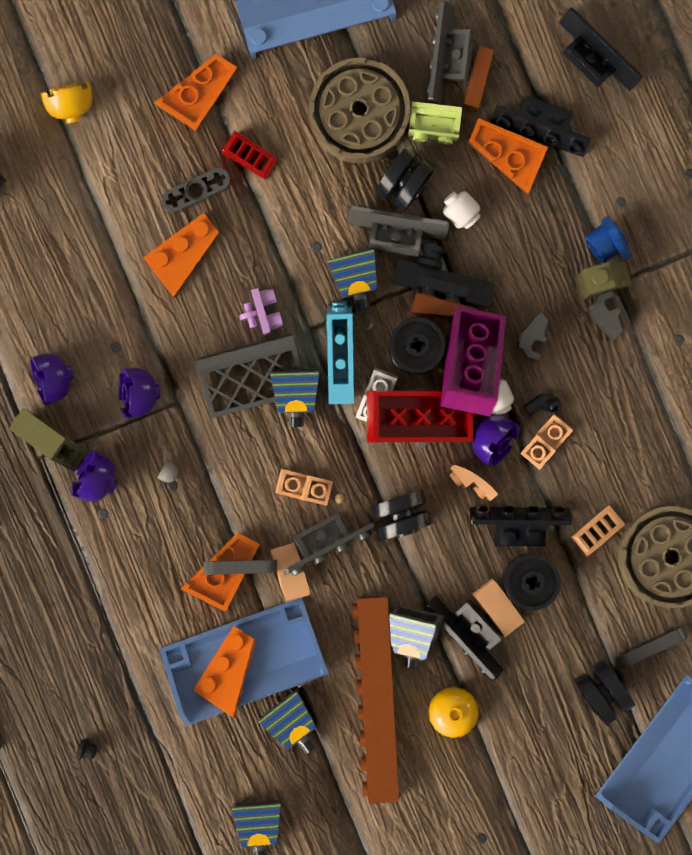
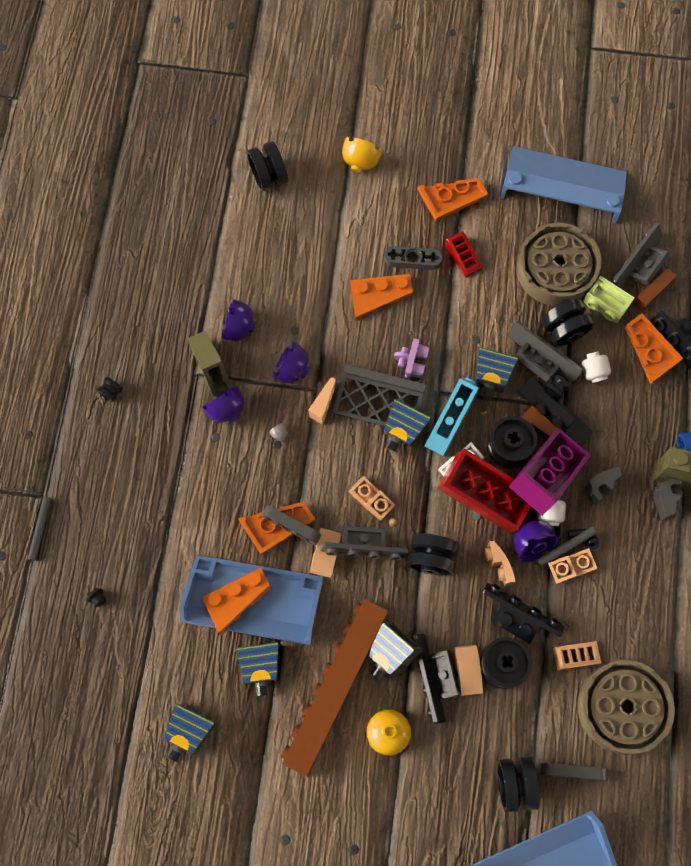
camera: 30 degrees right, 15 degrees down
(194, 418) = (321, 404): none -> light nougat slope
(530, 425) = (567, 546): none -> dark grey bar

